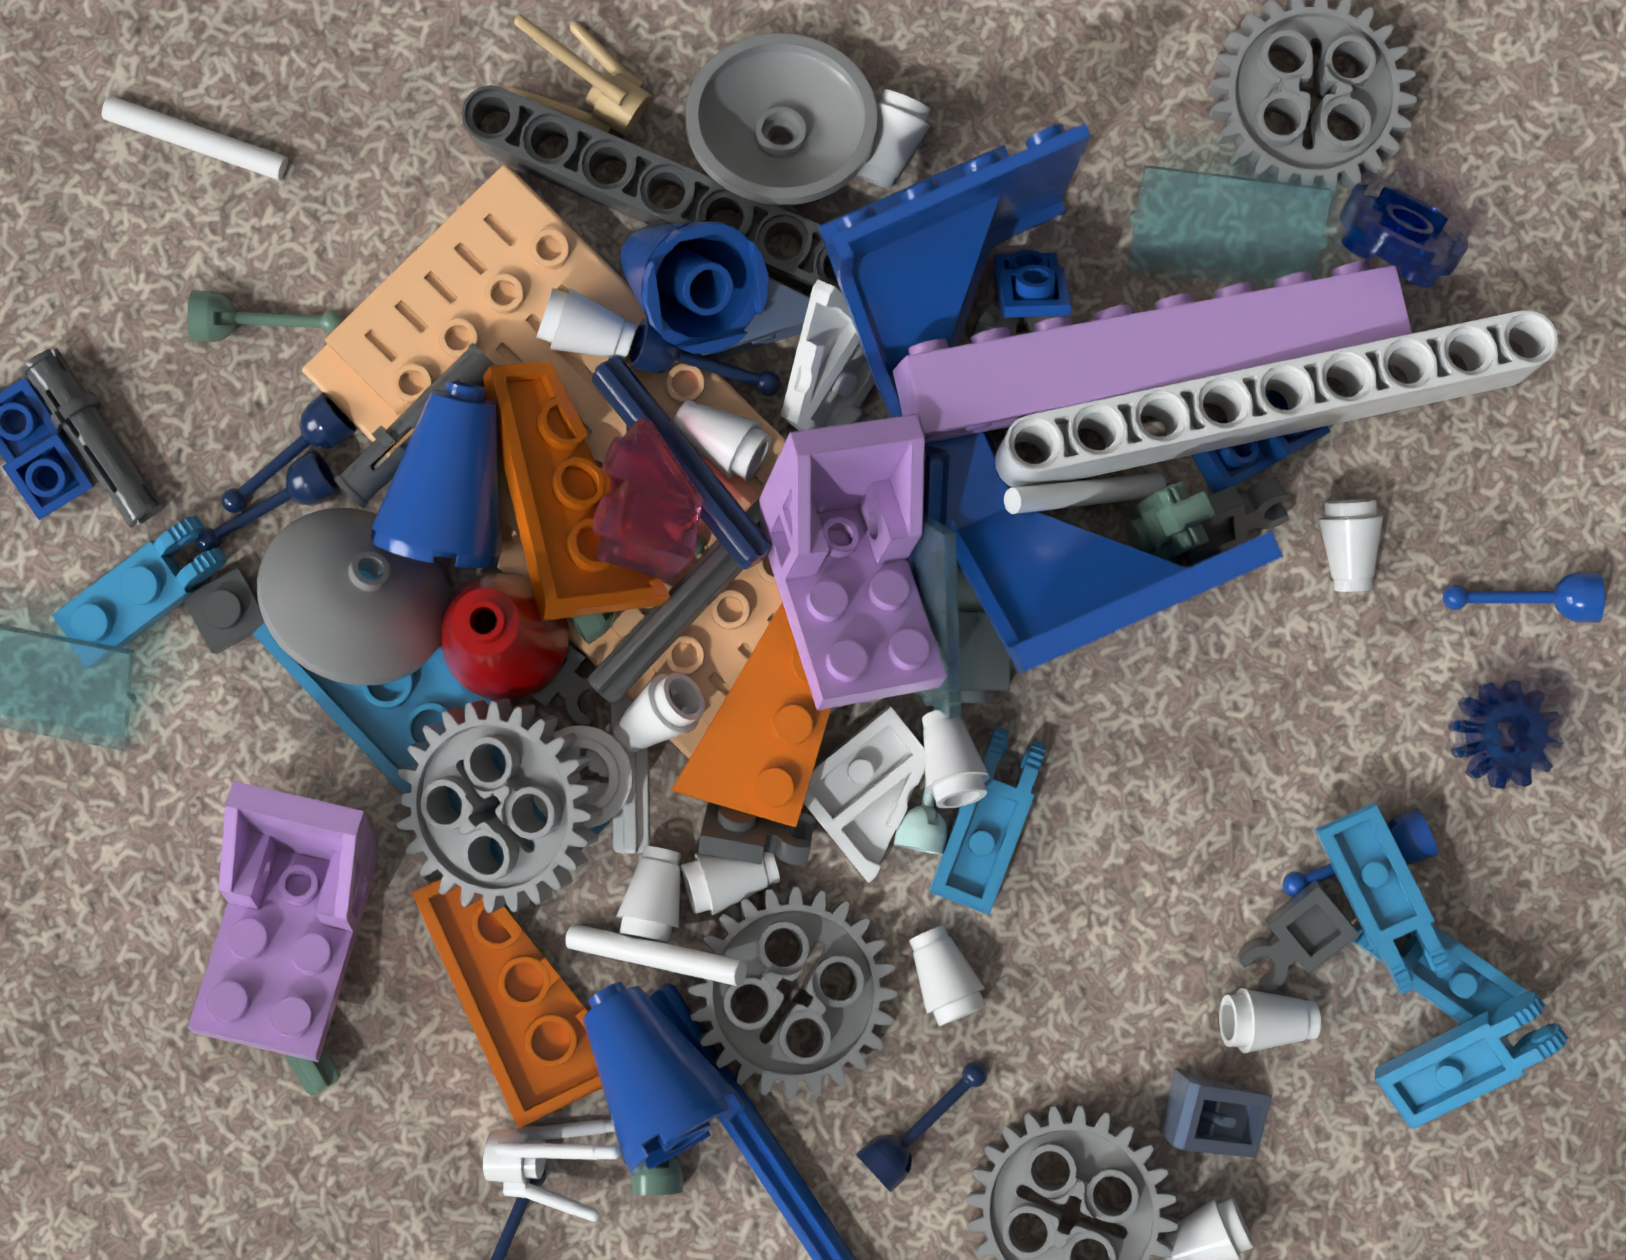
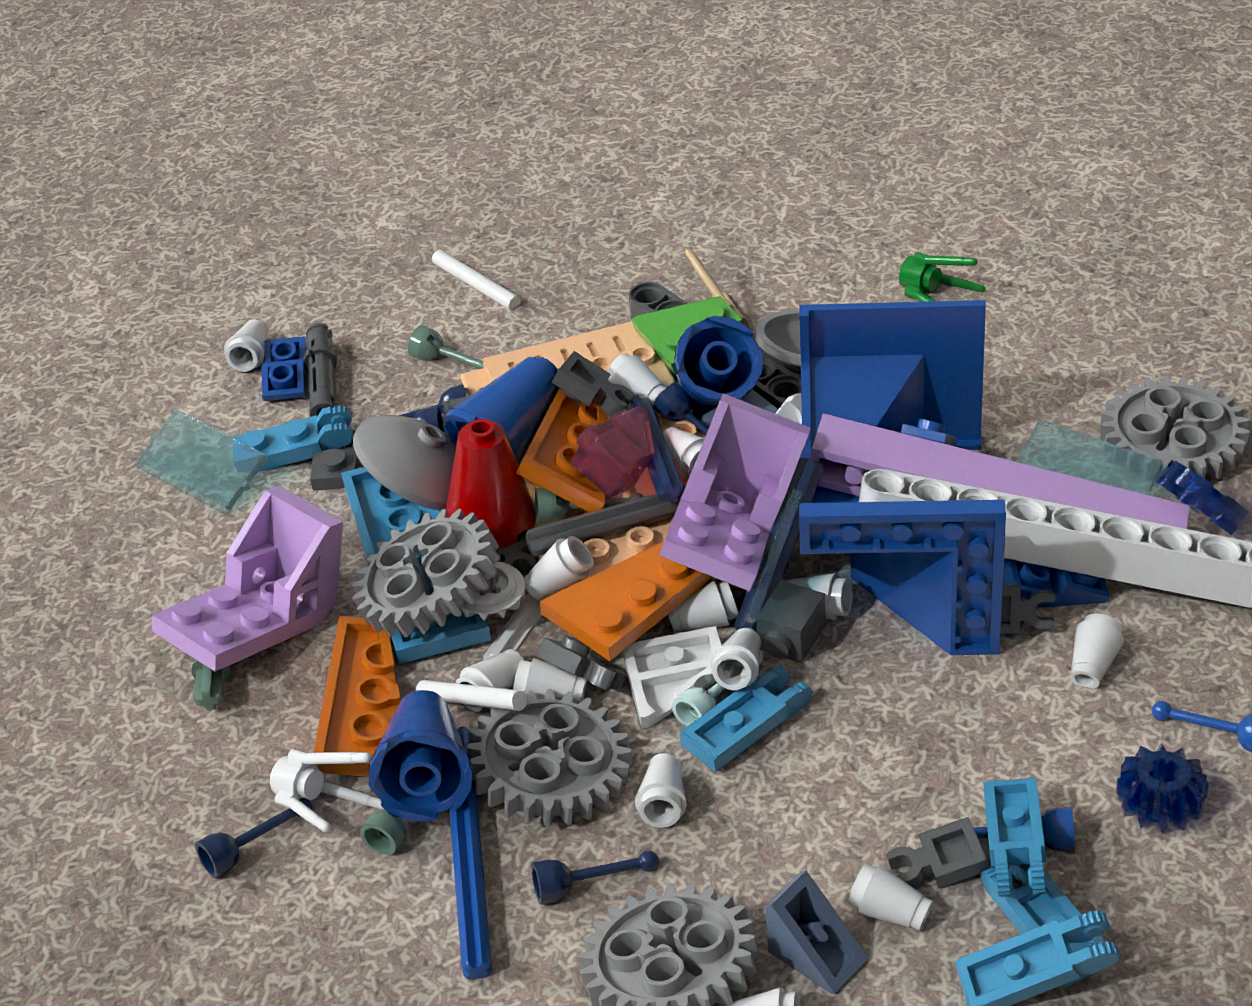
camera: 30 degrees right, 45 degrees down
(537, 399) = (589, 383): none -> dark grey plate
(599, 187) = (665, 327): none -> bright green wing

